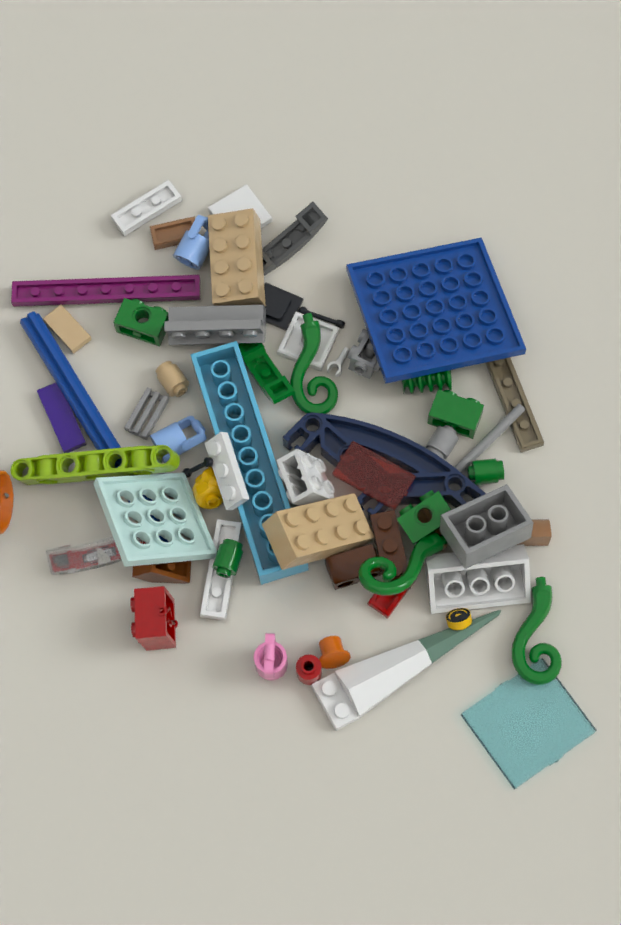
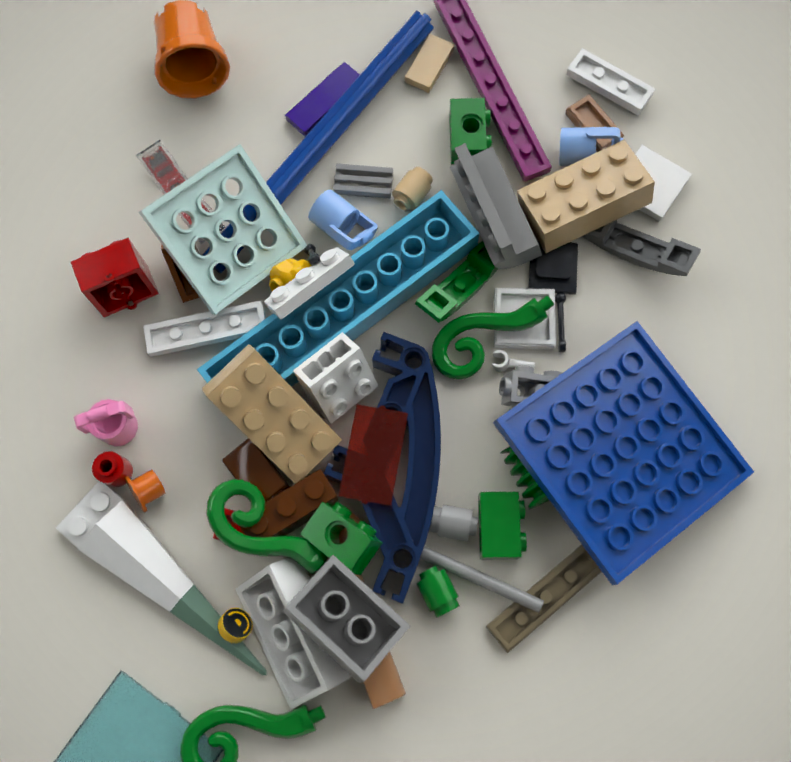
camera: 70 degrees right, 5 degrees up
(94, 464) = (272, 149): lime beam -> none
(228, 558) = (211, 327): green brick -> none

